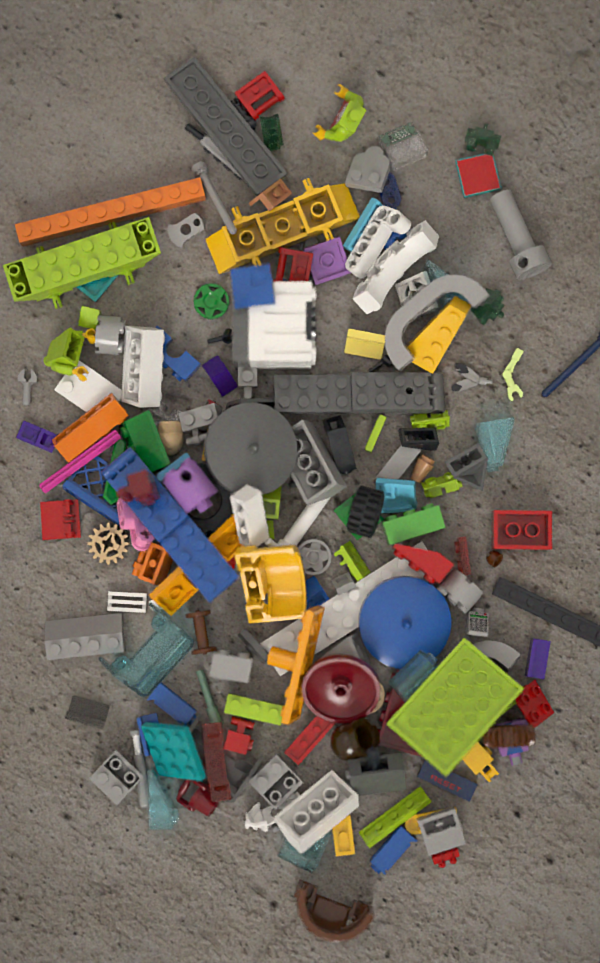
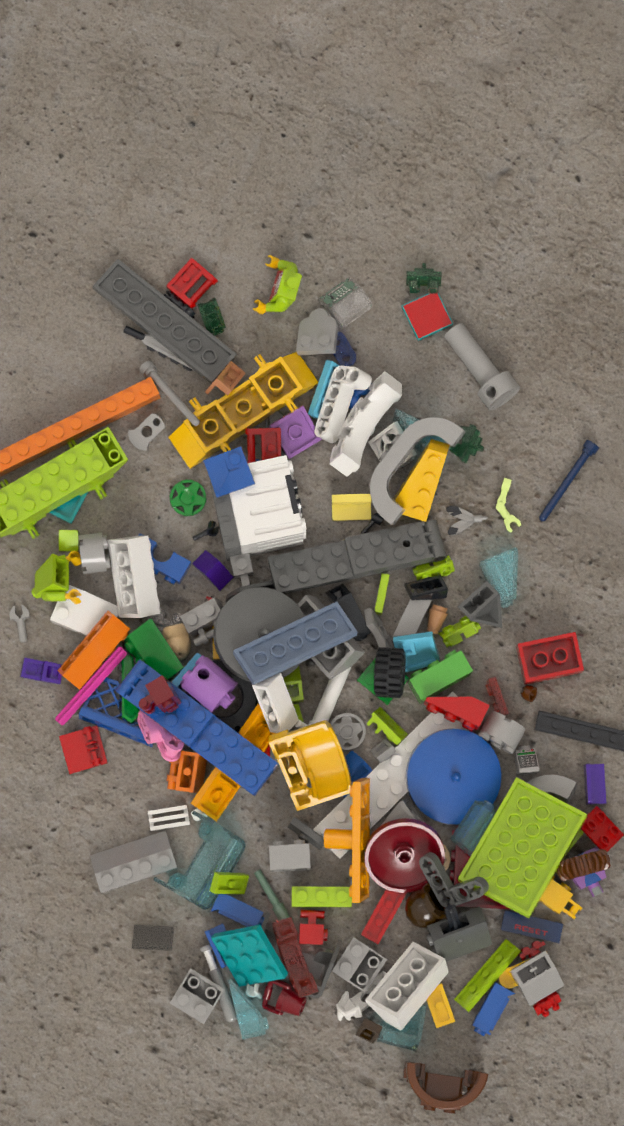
camera: 15 degrees left, 5 degrees down
(105, 552) = (128, 761): tan gear -> none
(169, 677) = (229, 883): none -> lime plate
(170, 784) = (253, 991): none -> white hand
(201, 632) = (250, 831): reddish brown hose -> none
(271, 845) = (368, 1030): none -> dark brown plate
(280, 465) = (295, 643): none -> sand blue plate
(362, 462) = (376, 626): none -> light grey tile
(376, 731) = (450, 890): none -> dark grey beam
(442, 804) = (531, 951): none -> red piece

